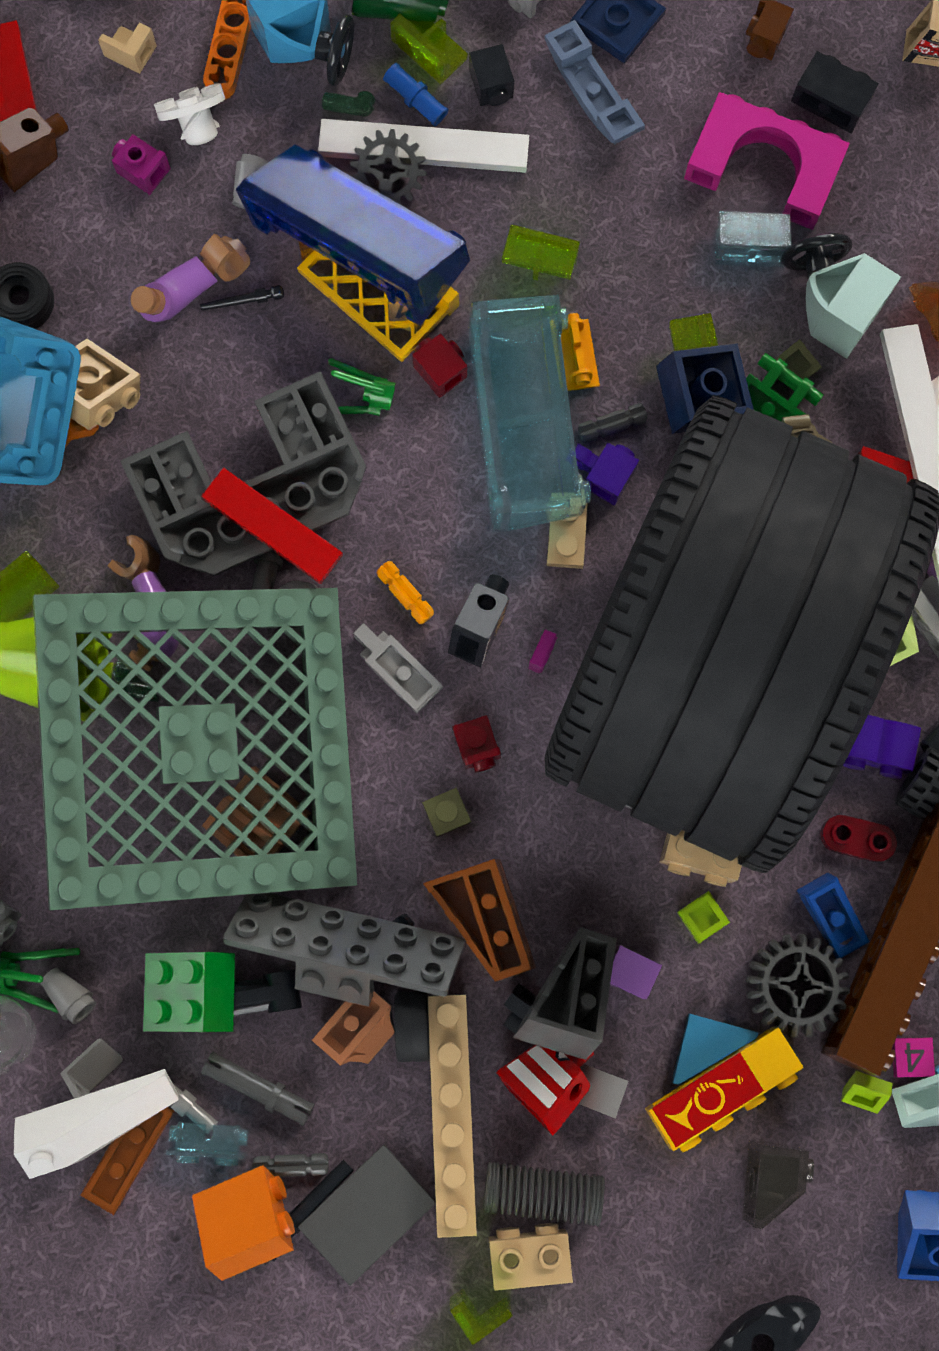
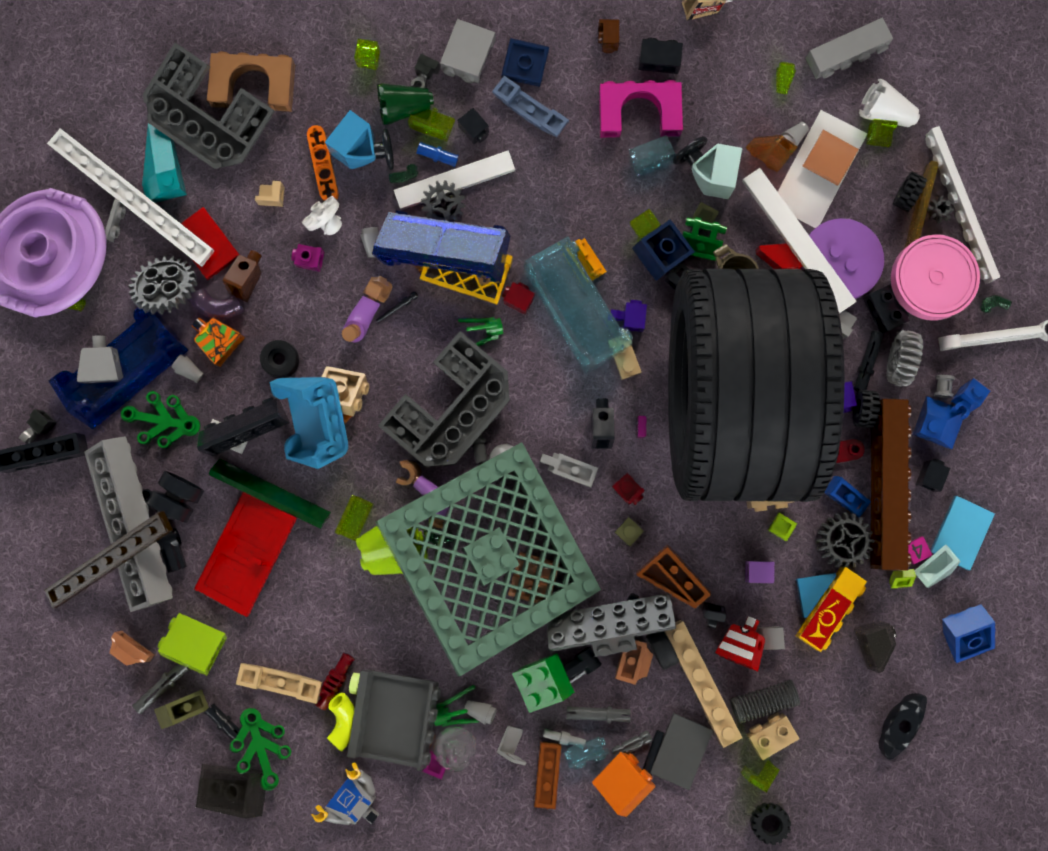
camera: 20 degrees left, 5 degrees up
(85, 1124) = (518, 778): white wedge -> none
(272, 525) = (474, 425): red tile -> none
(405, 592) = (555, 427): light orange axle -> none
(540, 252) = (545, 214): clear neon green panel -> none
(574, 998) = (738, 598): dark grey wedge -> none
(612, 423) = (622, 288): dark grey axle -> none

